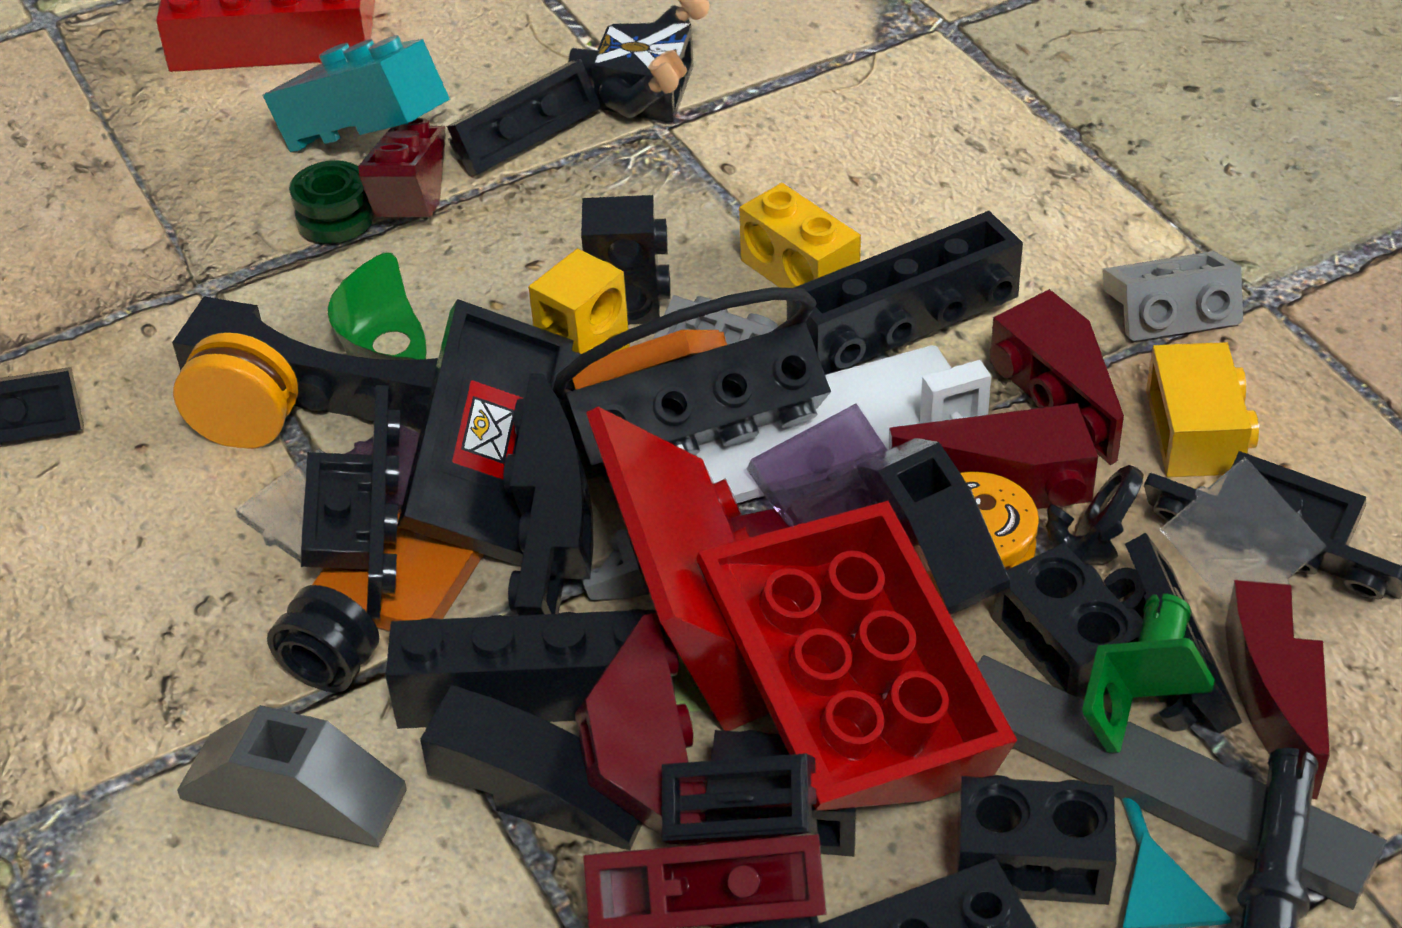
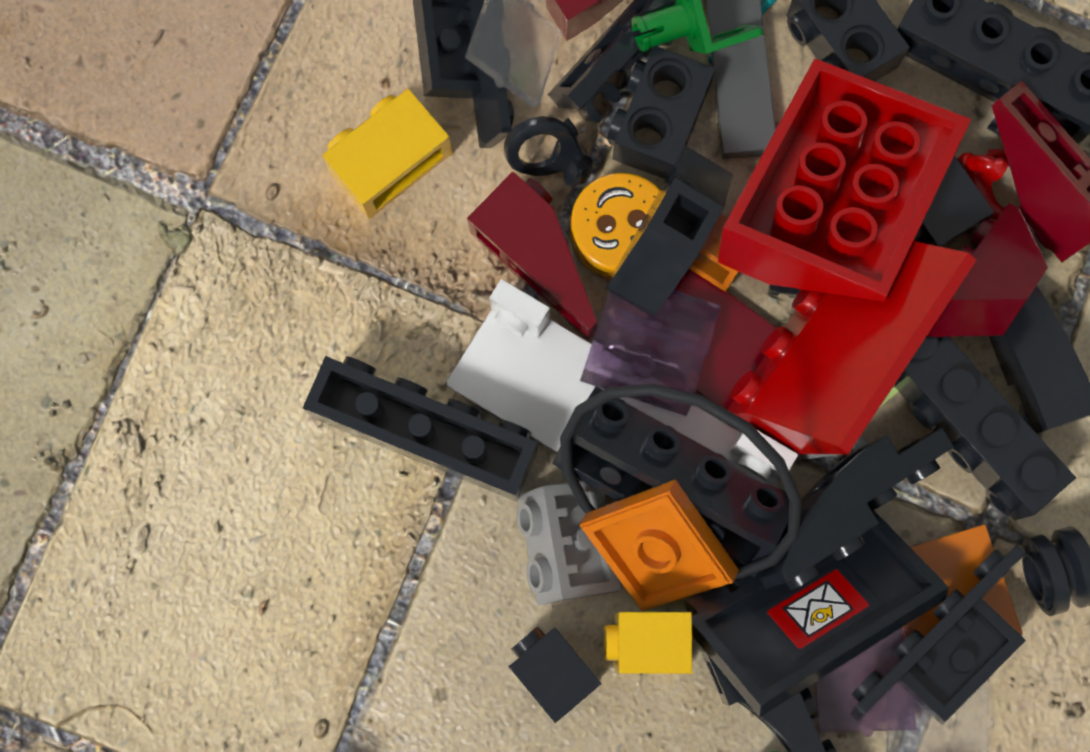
camera: 130 degrees left, 35 degrees up
(794, 238) = (413, 560): yellow brick -> none
(799, 796) = (1001, 171): black tile -> none
(1058, 362) = (404, 276): dark red slope -> none
(1177, 294) = (253, 250): light grey bracket -> none

